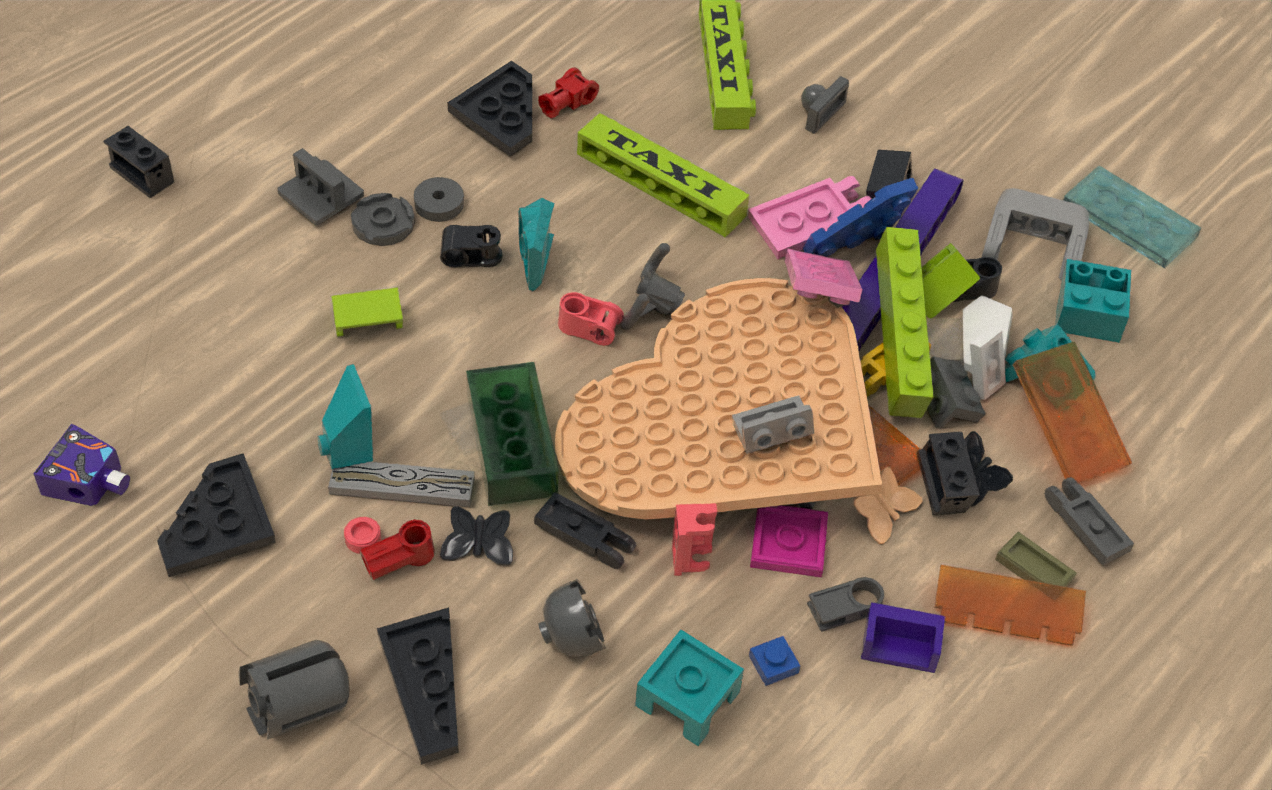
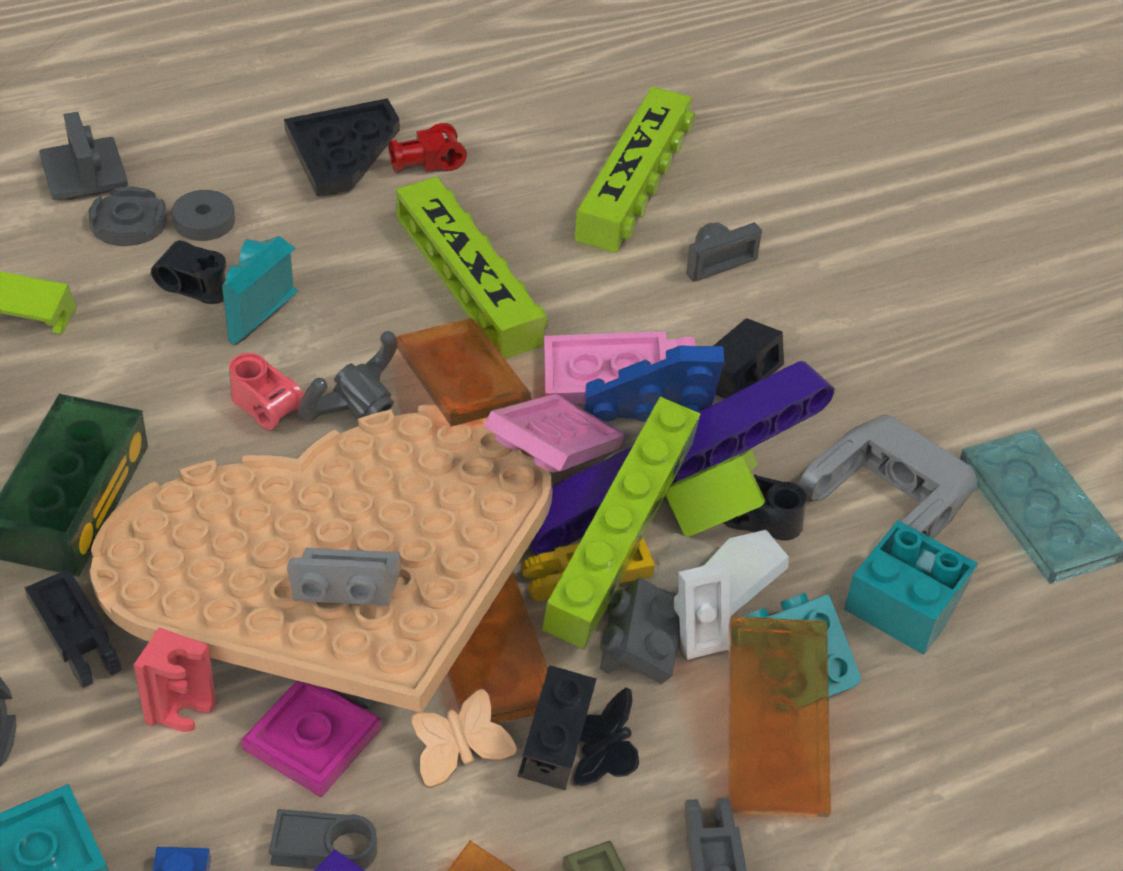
camera: 25 degrees right, 5 degrees down
(719, 254) = (462, 371): none -> clear orange tile

